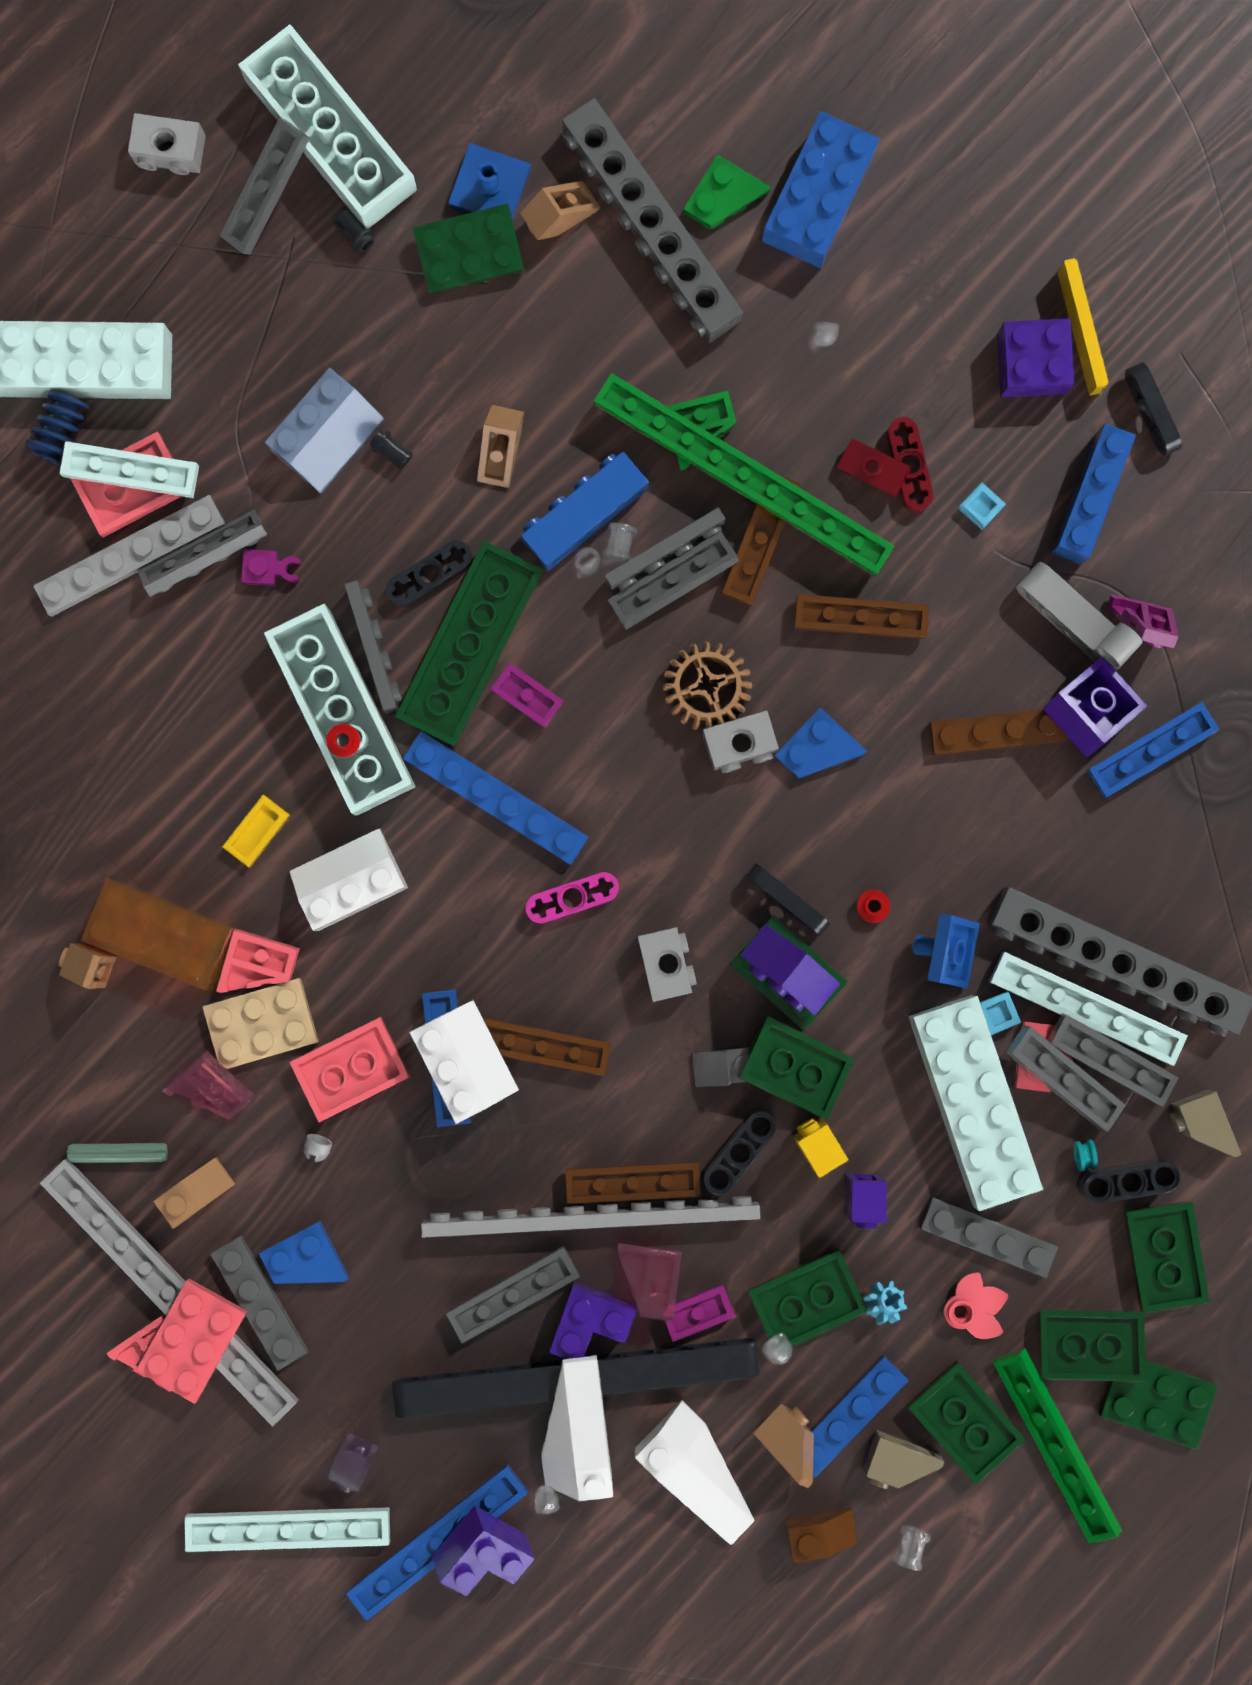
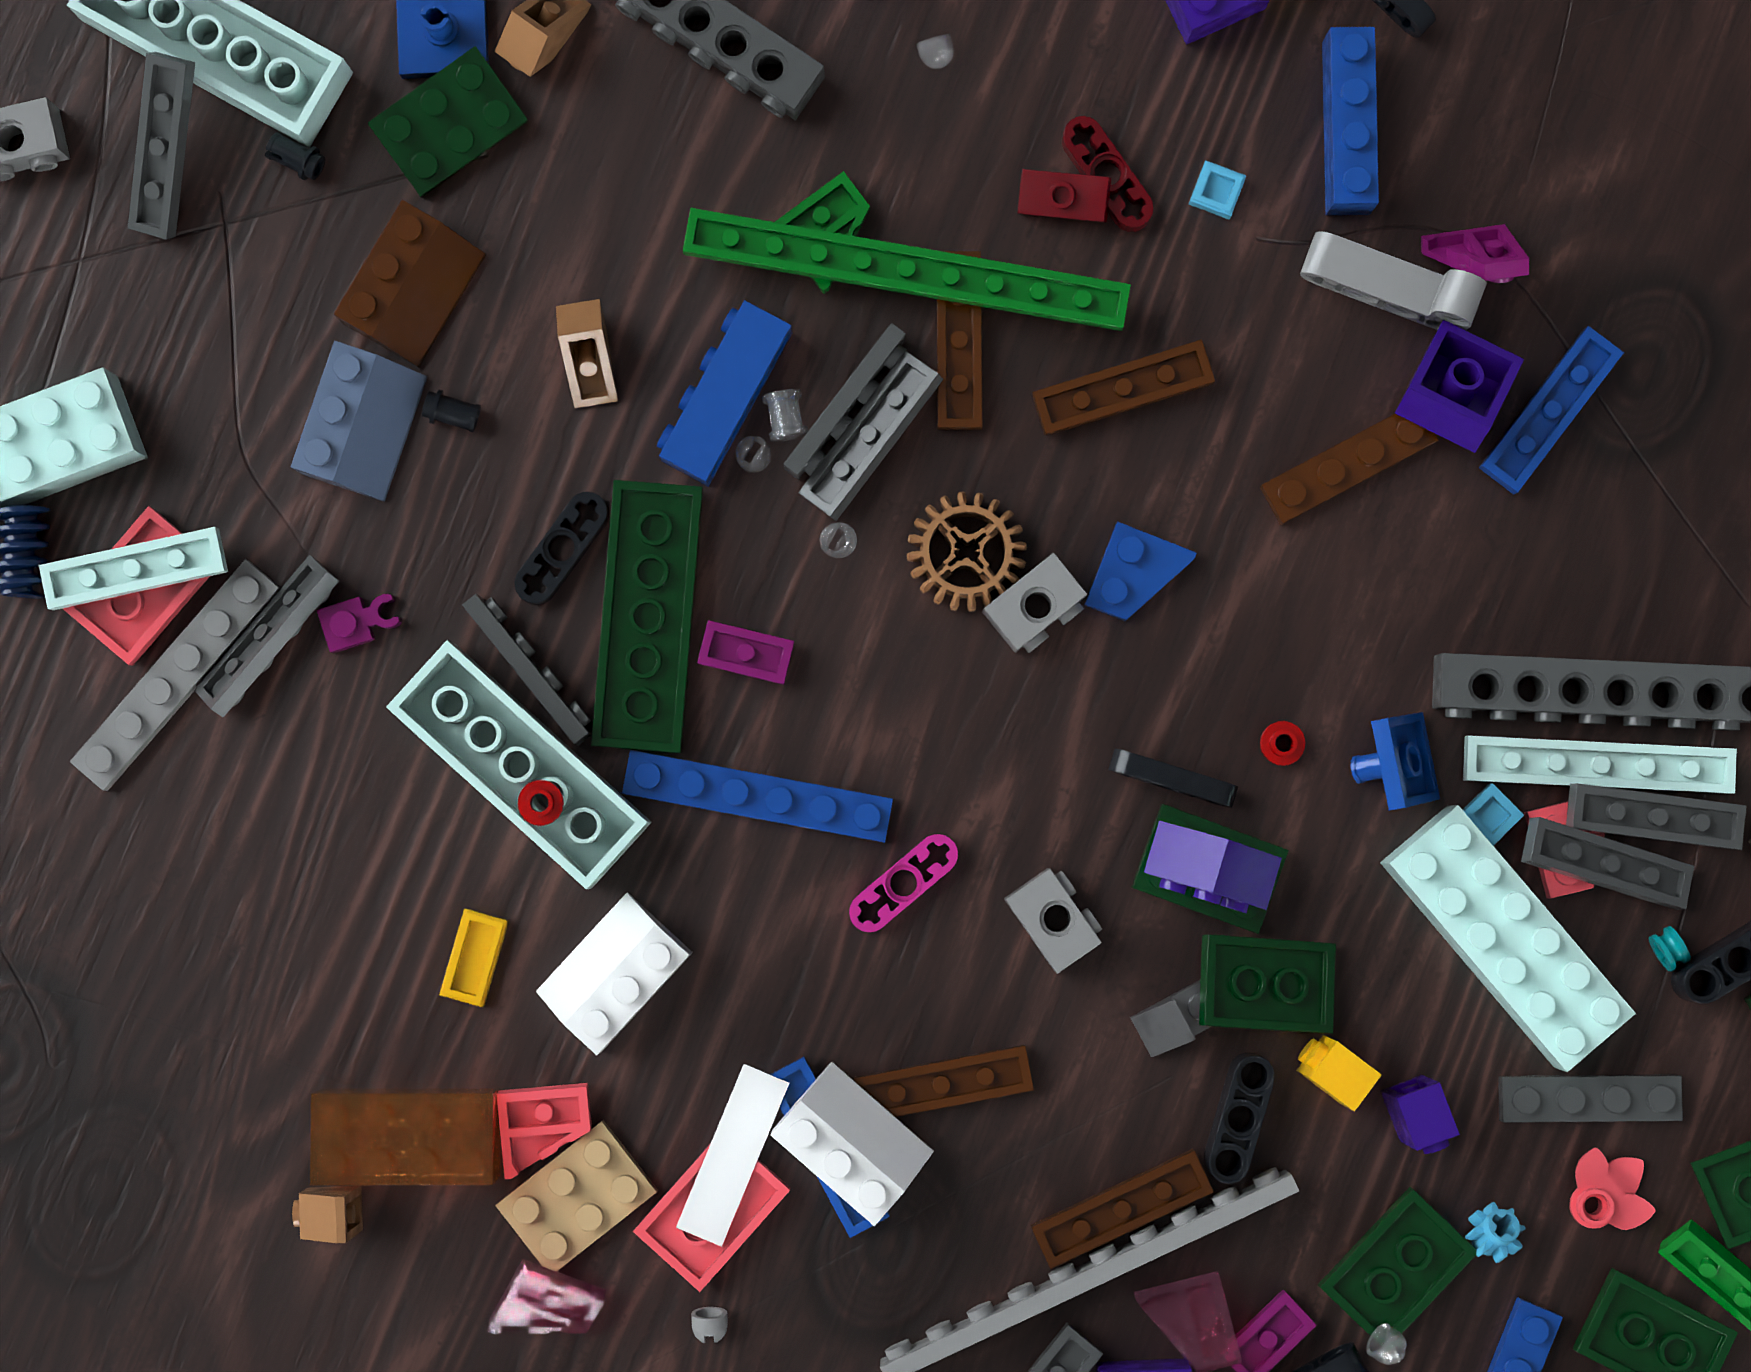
camera: 20 degrees left, 0 degrees up
(379, 1037) = (732, 1155): none -> white sticker
(397, 349) = (409, 283): none -> reddish brown slope
(626, 648) = (845, 544): none -> clear hinge

